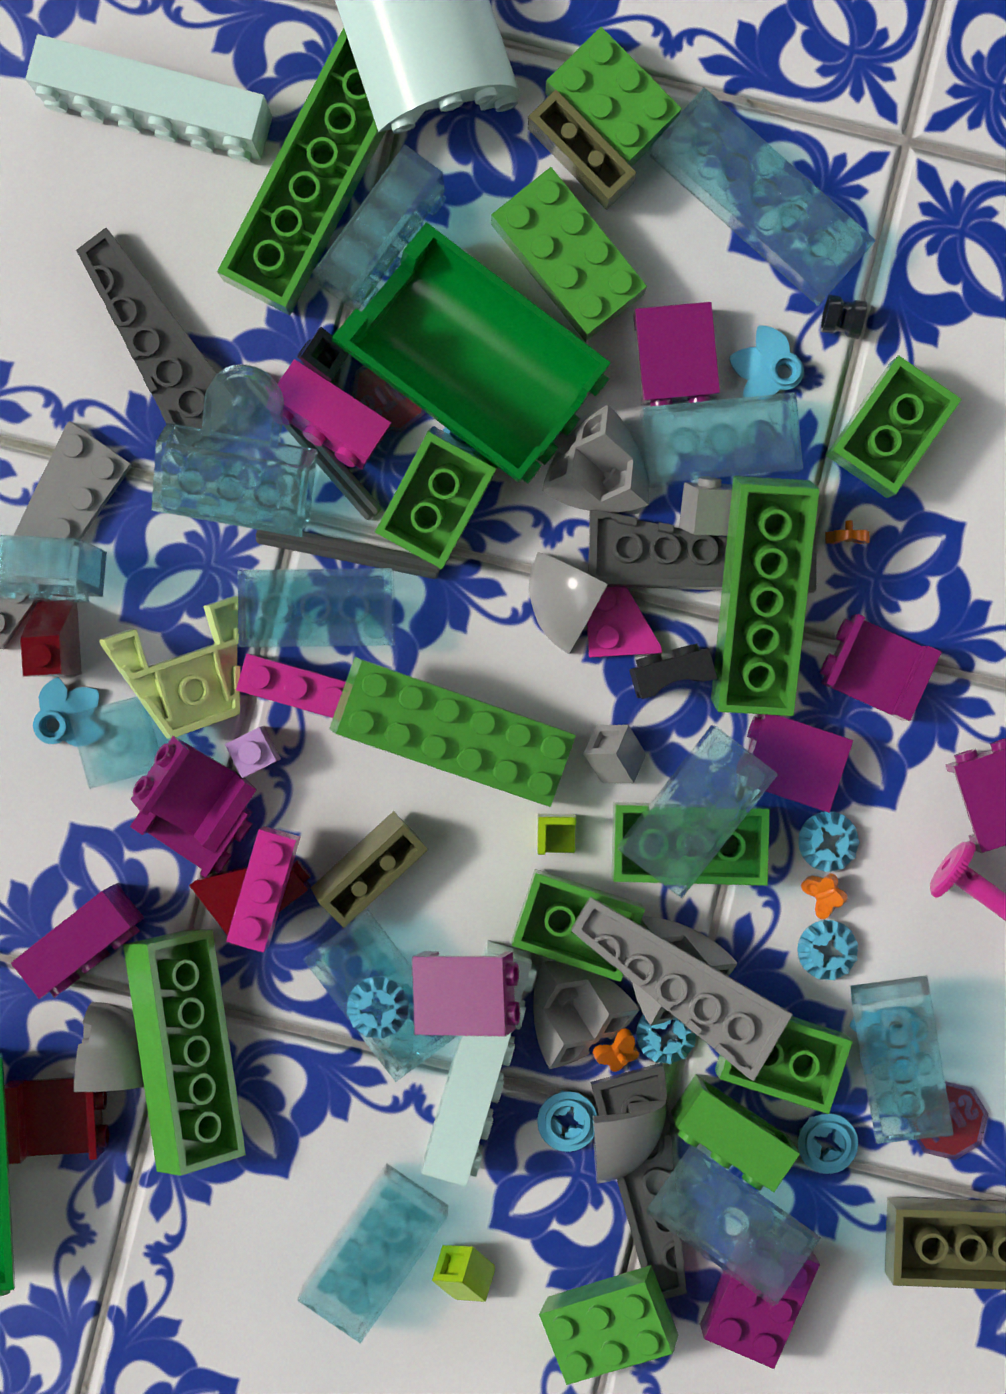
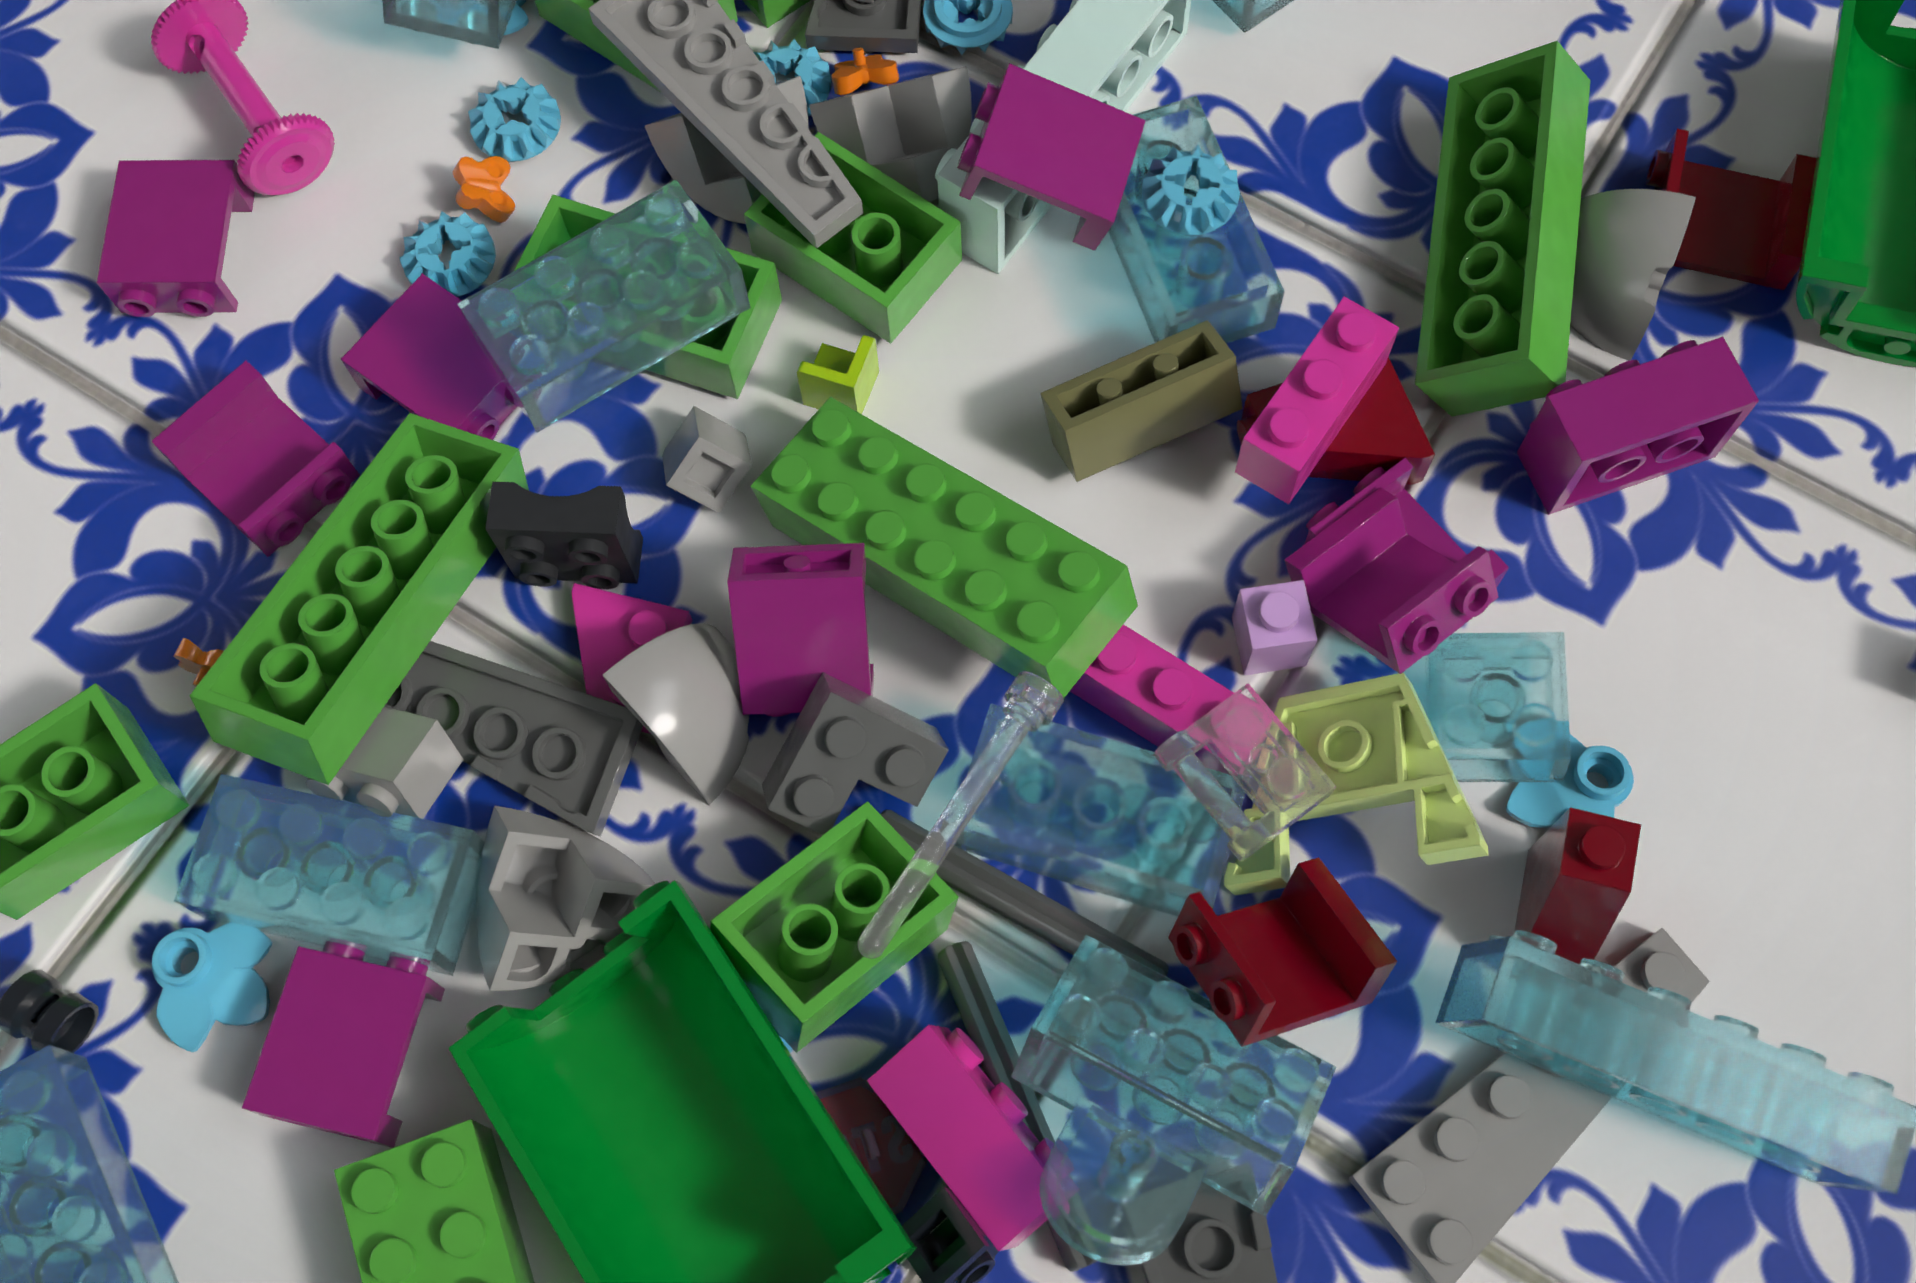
camera: 155 degrees left, 20 degrees down
(195, 559) = (1283, 957): none -> dark red panel
(233, 657) = (1260, 759): none -> clear plate
(369, 644) = (1029, 705): none -> clear piece
(467, 600) = (845, 739): none -> dark grey brick
(513, 656) = (798, 617): none -> magenta panel

